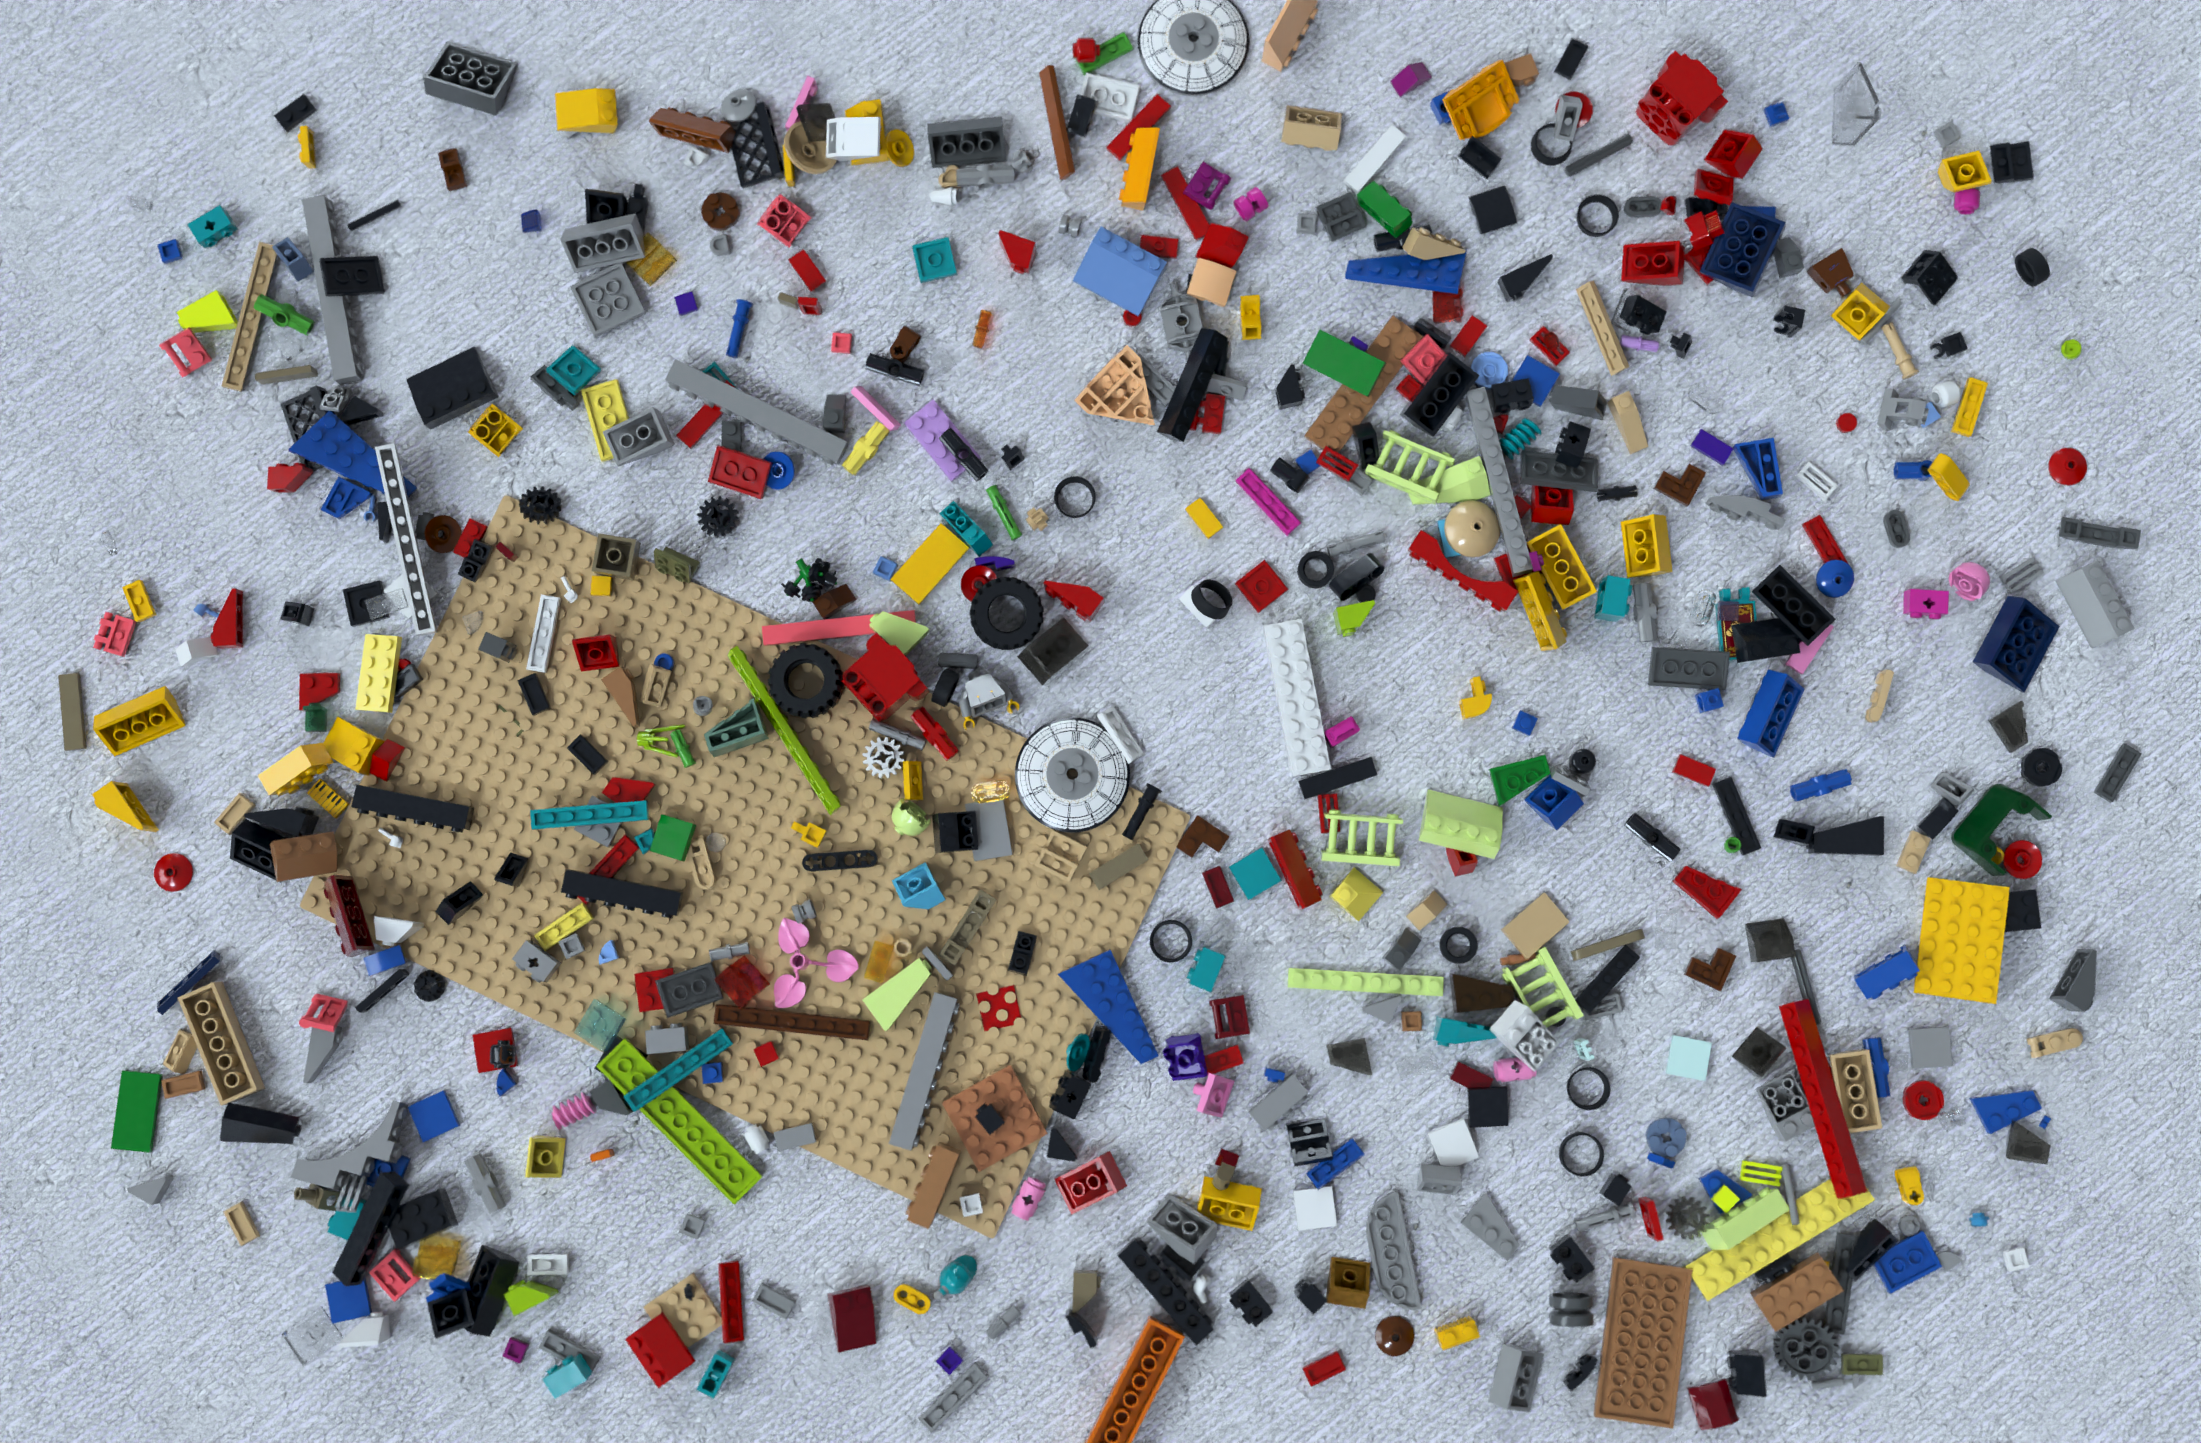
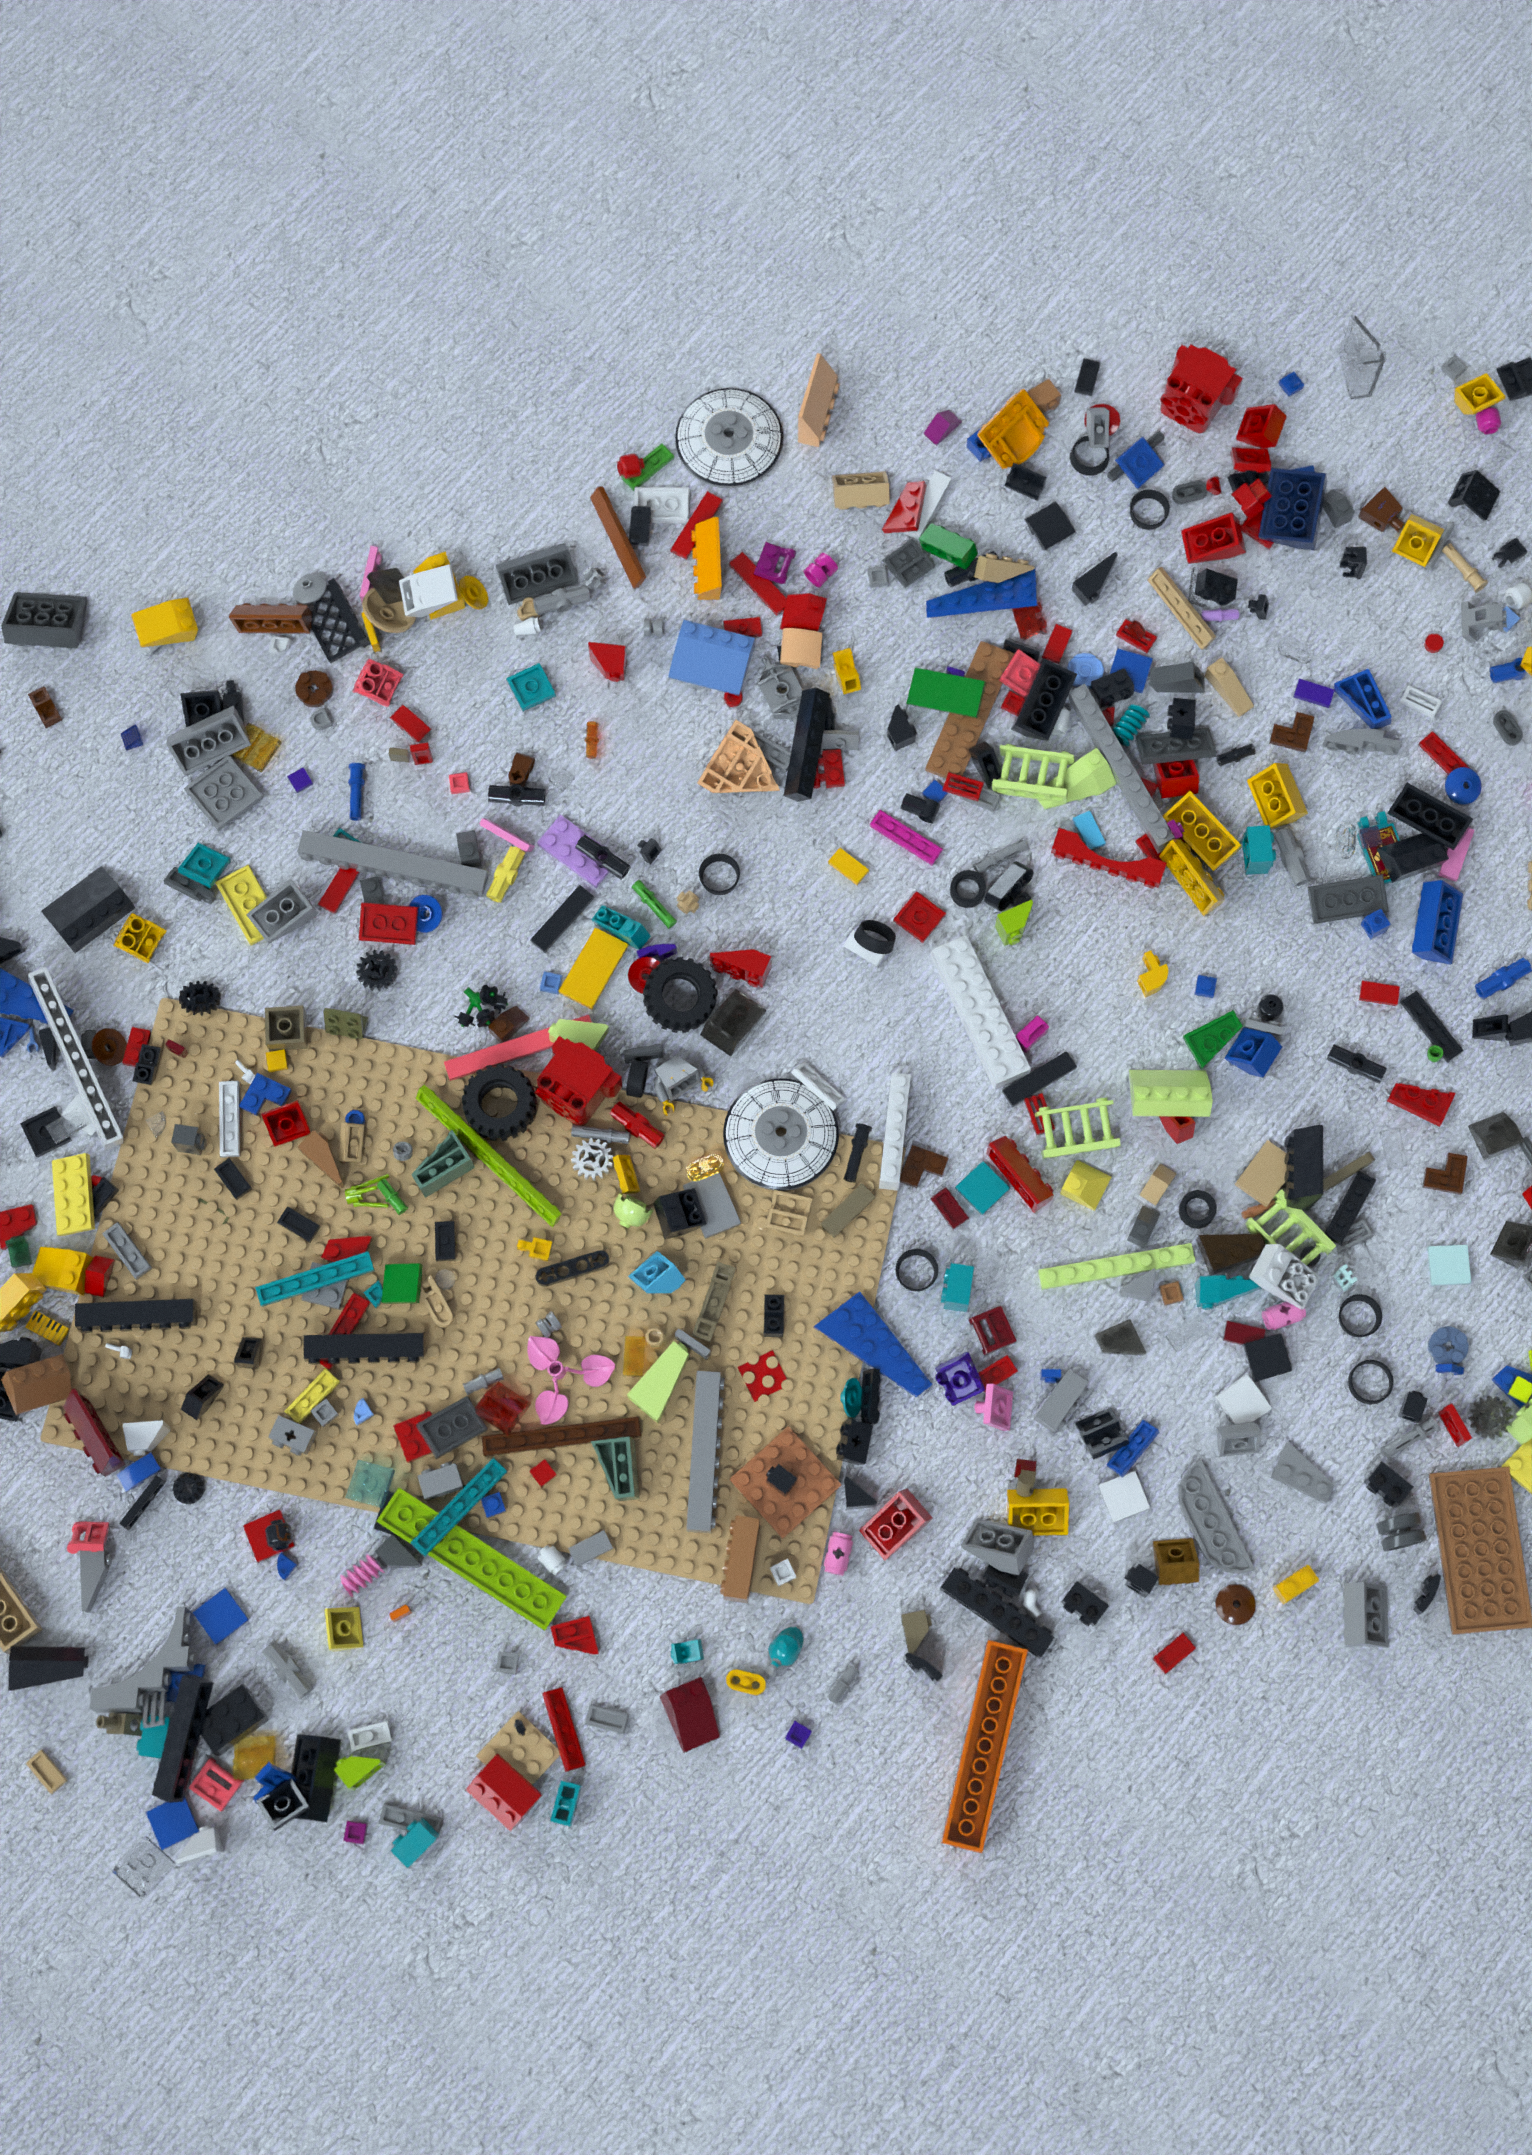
camera: 15 degrees left, 10 degrees down
(418, 741) = (127, 1250): none -> light grey tile
(579, 612) = (262, 1090): none -> blue plate
(723, 805) = (445, 1241): none -> black plate
(762, 1216) = (575, 1636): none -> red wing
(839, 1067) = (620, 1466): none -> sand green wedge
(863, 1257) = (687, 1652): none -> teal bracket
(911, 506) = (562, 918): none -> black tile
(953, 1397) = (811, 1772): light grey tile -> none
(1183, 799) = (894, 1131): none -> white brick
(1353, 160) = (907, 510): none -> wing
(1461, 532) = (1100, 824): tan dish -> none
(1573, 932) = (1304, 1167): none -> black slope
(1600, 163) = (1139, 462): none -> blue tile

